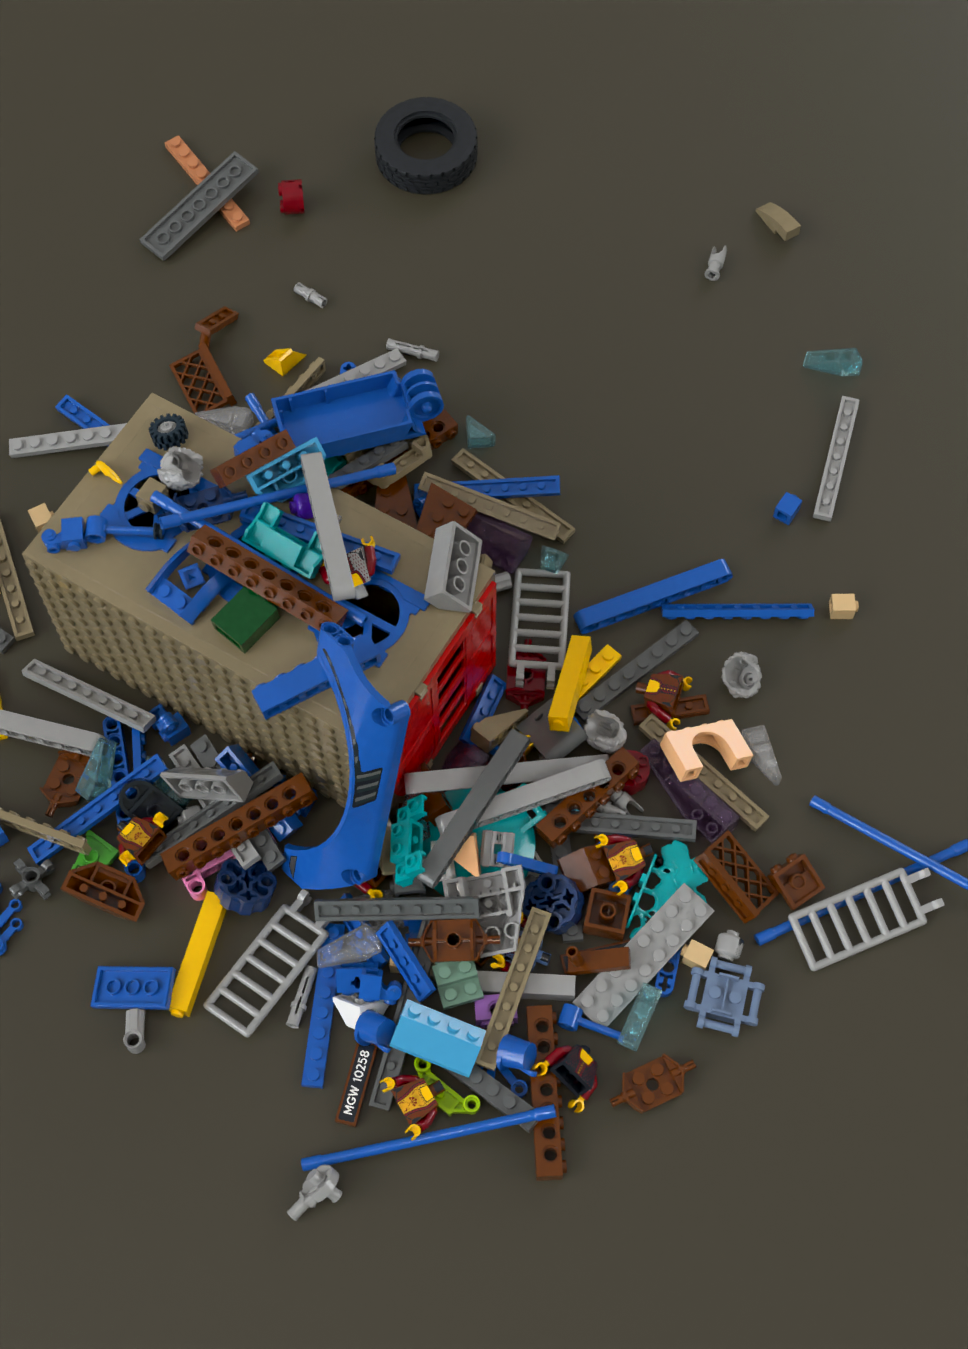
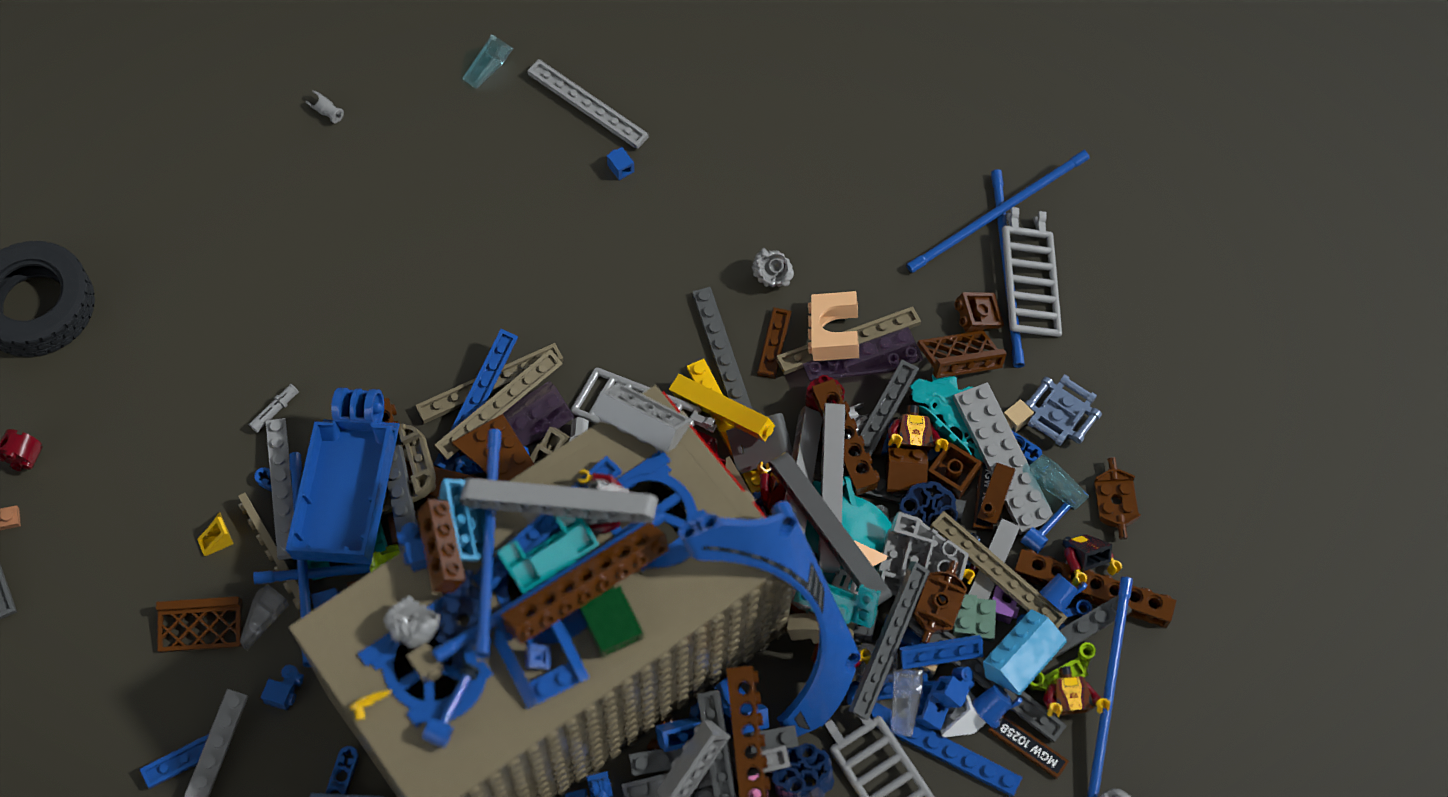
camera: 70 degrees left, 0 degrees up
(69, 538) = (433, 759): blue brick -> none
(168, 431) = (355, 622): black wheel -> none
(214, 323) = (137, 585): reddish brown piece -> none
(294, 1019) = (936, 770): light grey pin -> none
(301, 506) = (509, 523): dark purple head -> none
(307, 680) = (704, 593): blue brick -> none
(310, 295) = (149, 480): light grey pin -> none
(478, 435) = (405, 387): clear light blue slope -> none
(489, 838) = (858, 534): light grey piece -> none
(527, 863) = (888, 513): blue beam -> none
(552, 559) = (579, 374): clear light blue slope -> none
(605, 731) = (780, 398): light grey hair -> none
(652, 596) = (656, 309): blue beam -> none
(663, 695) = (763, 338): torso -> none
(729, 946) = (1018, 387): light grey head -> none
(745, 611) = (703, 247): blue plate -> none
(763, 754) = (847, 283): clear slope -> none
(779, 221) = (308, 36): dark tan slope -> none
(843, 606) = (738, 164): tan brick -> none

